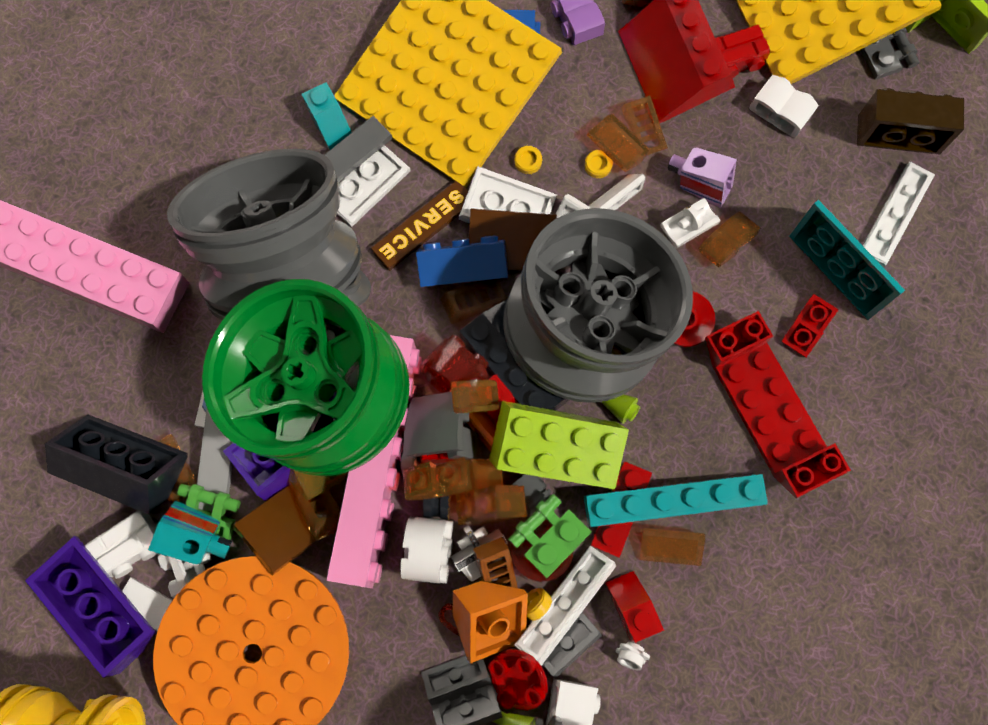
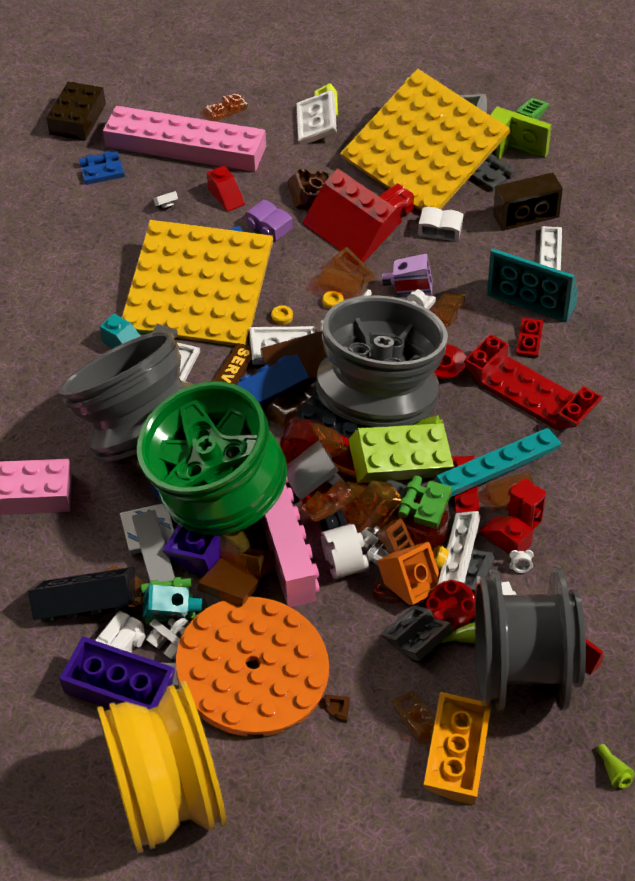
camera: 25 degrees left, 25 degrees down
(674, 587) = (527, 502): none -> red brick

